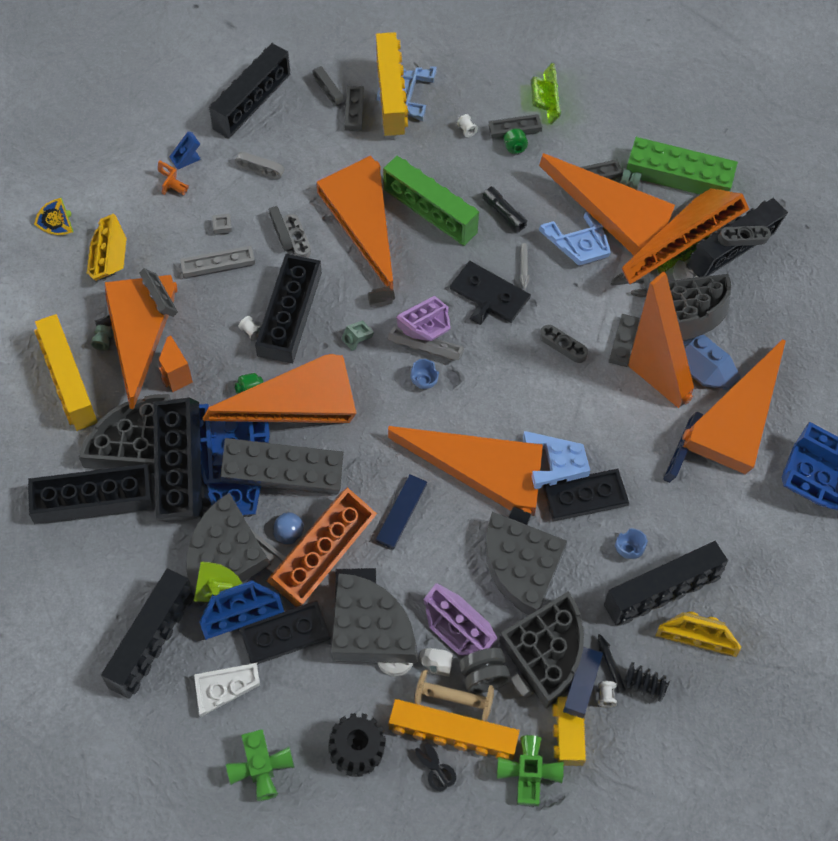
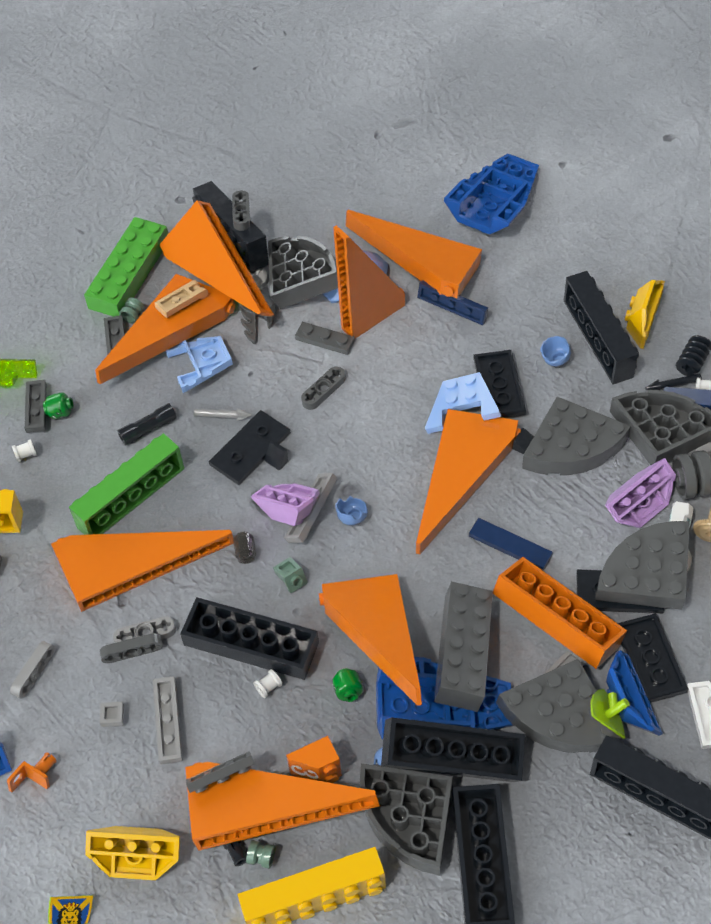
camera: 80 degrees left, 5 degrees down
(288, 528) = (527, 652): medium blue hair -> none
(639, 208) = (181, 298): none -> tan plate

